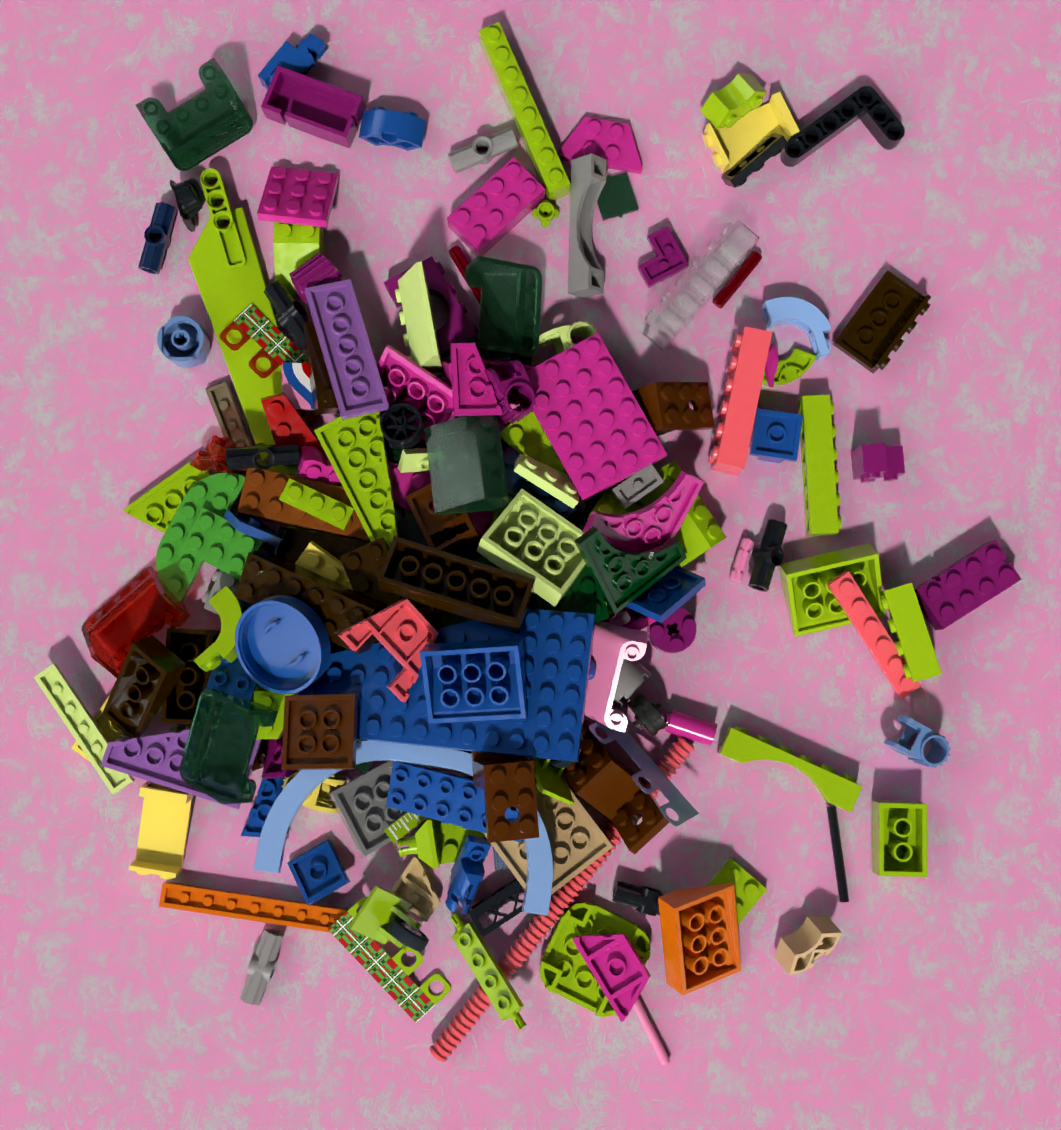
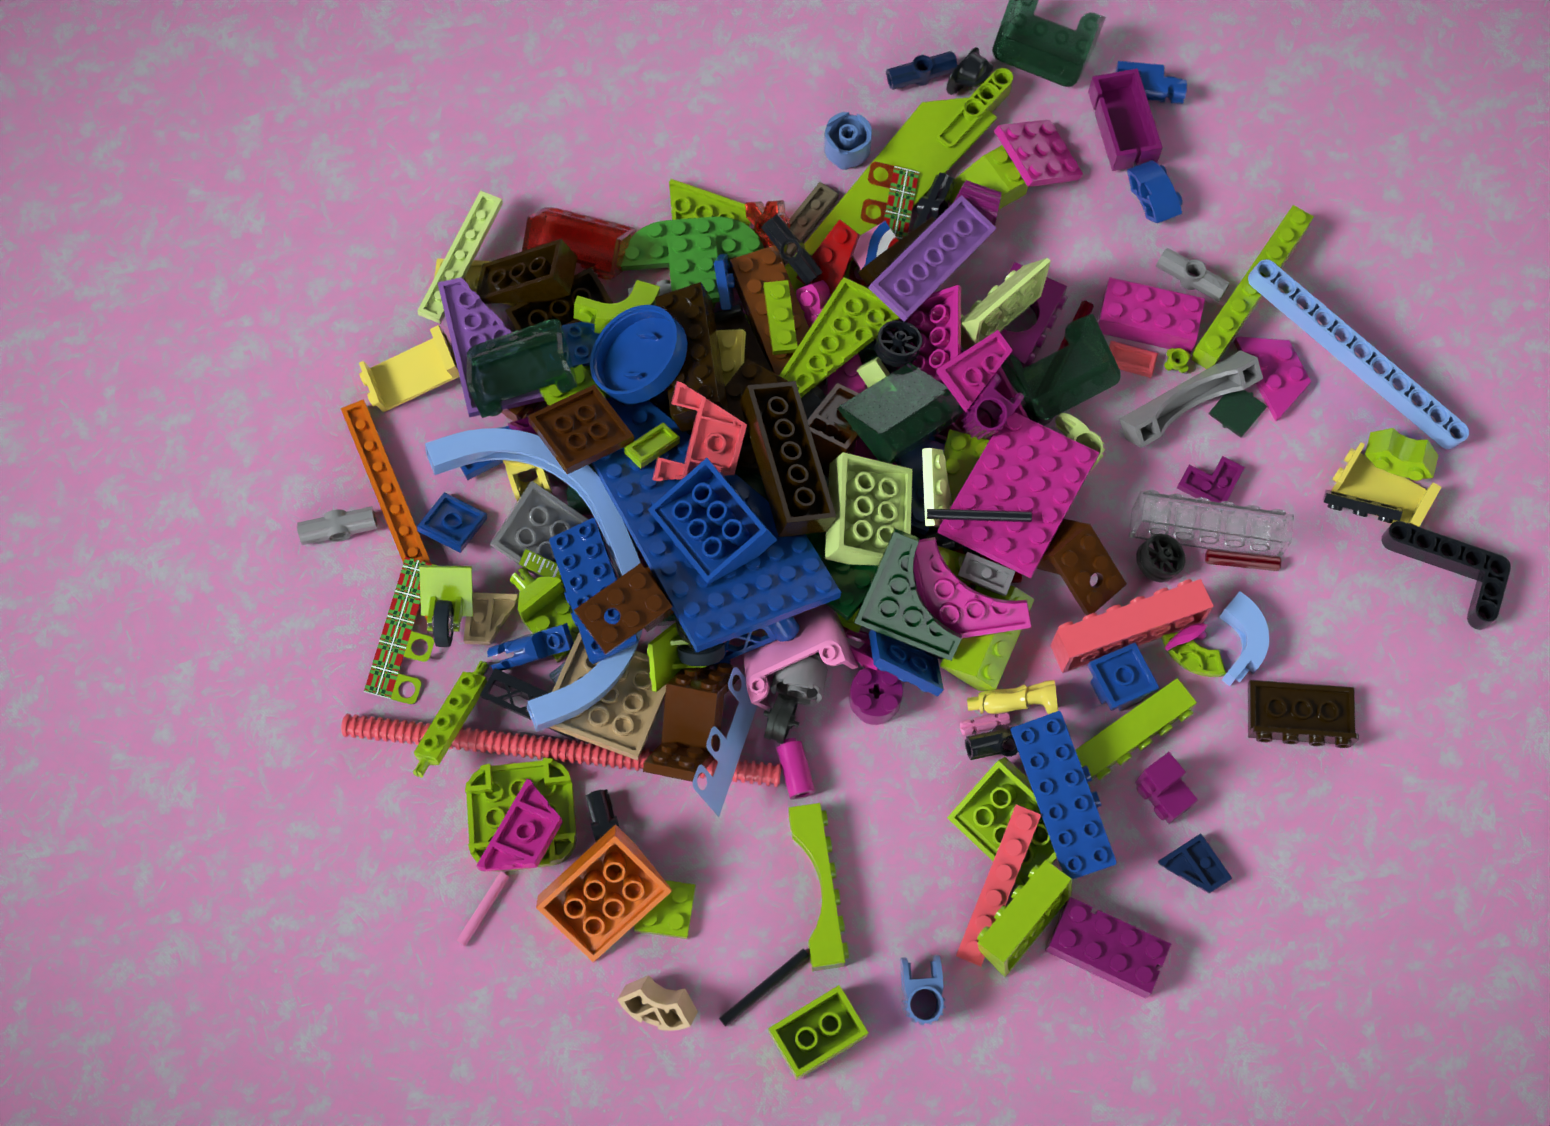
camera: 55 degrees right, 15 degrees down
(369, 682) = (652, 445): none -> lime tile
(521, 246) = (1133, 359): none -> coral tile
(595, 462) = (979, 515): none -> black bar
(627, 81) = (1369, 355): none -> light blue beam
(701, 330) = (1153, 566): none -> pearl dark grey wheel
(741, 525) = (1013, 699): none -> light yellow piece
(845, 544) = (1064, 795): none -> blue bracket
(943, 478) = (1197, 865): none -> dark blue wing

